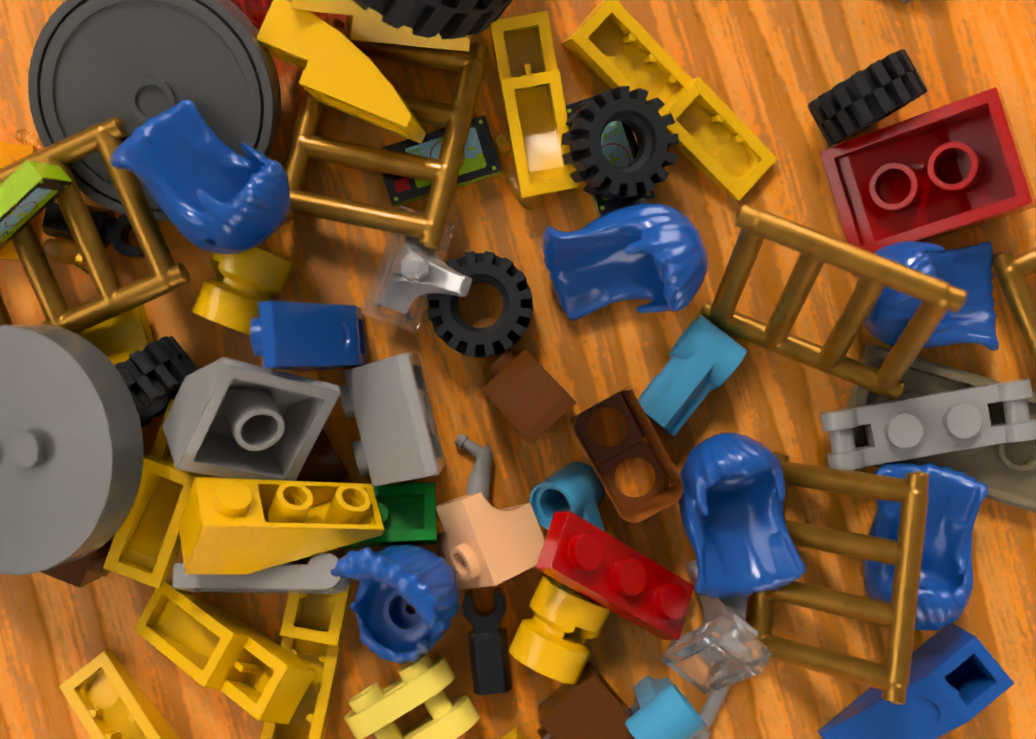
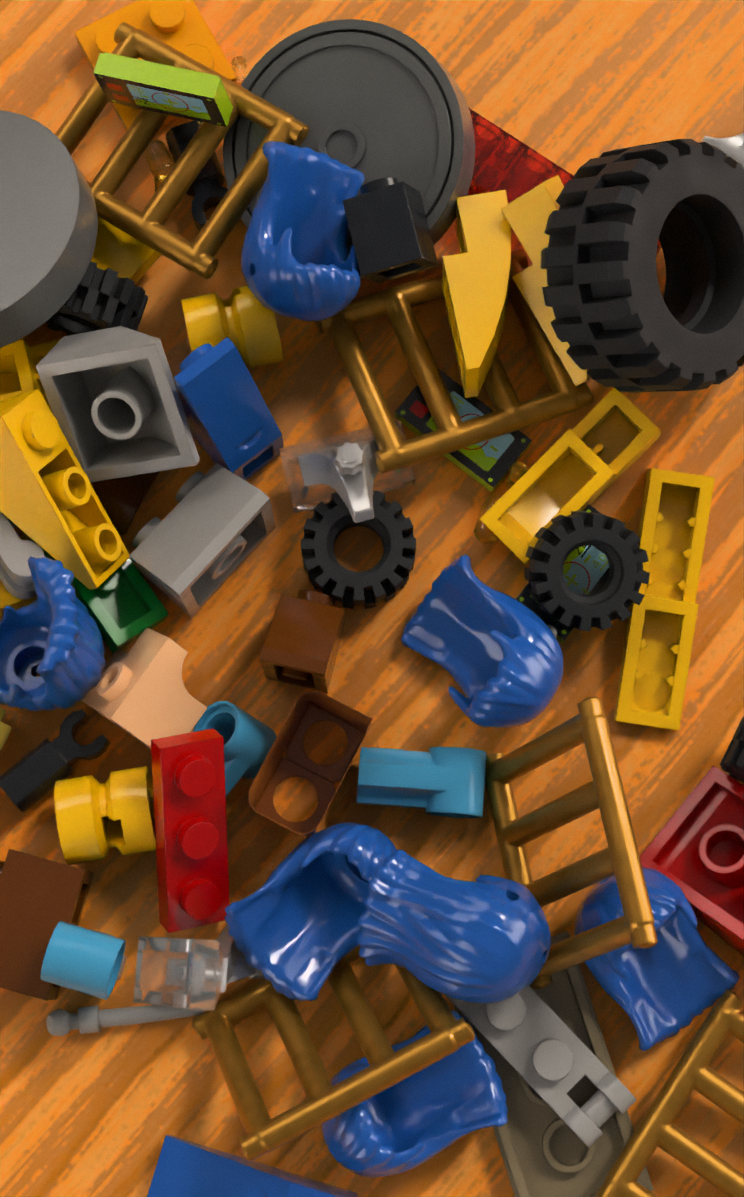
camera: 60 degrees right, 10 degrees down
(248, 110) = (389, 230): none -> black brick
(481, 473) = (211, 650): light grey piece -> none
(839, 439) = (454, 934): none -> blue piece

